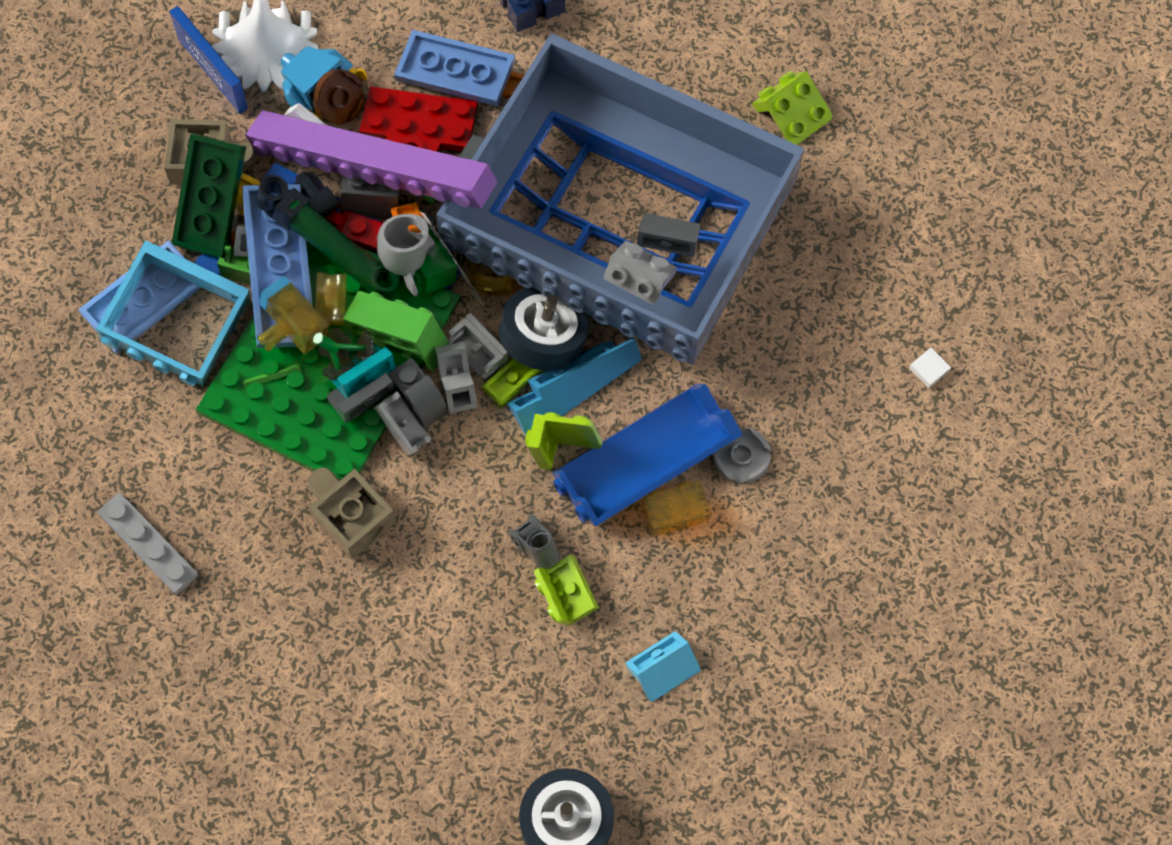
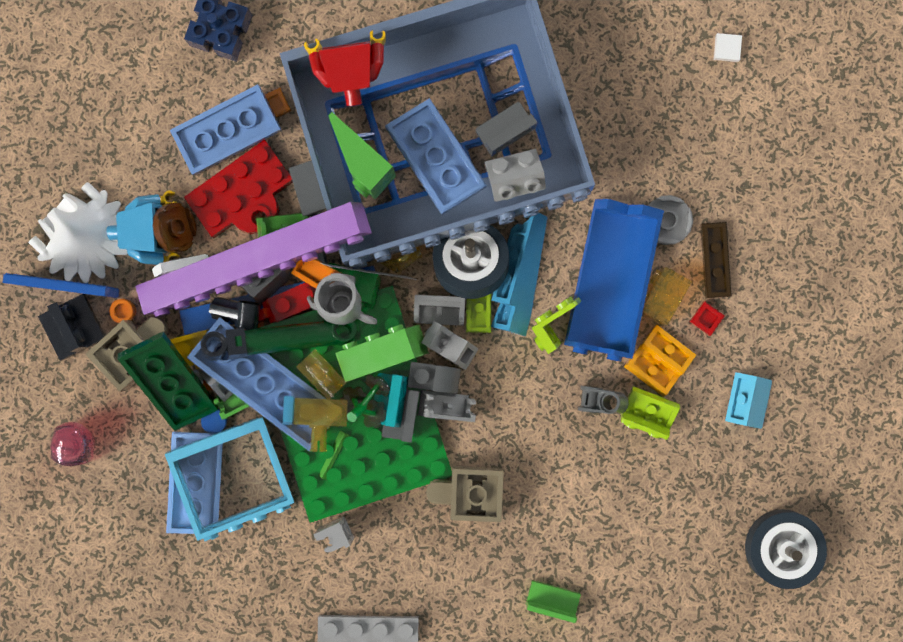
camera: 40 degrees left, 20 degrees up
(86, 177) = (72, 444): none -> clear pink piece
(181, 96) = (71, 326): none -> black bracket
(209, 431) = (337, 532): none -> light grey hinge
(235, 122) = (122, 310): none -> orange tile
(322, 669) = (553, 601): none -> bright green panel
(526, 154) = (366, 166): none -> bright green slope
(591, 205) = (435, 156): none -> medium blue tile
(593, 81) = (348, 66): none -> red torso
(619, 560) = (660, 360): none -> light orange slope
(695, 564) = (707, 318): none -> red tile
(751, 525) = (716, 260): none -> dark brown tile

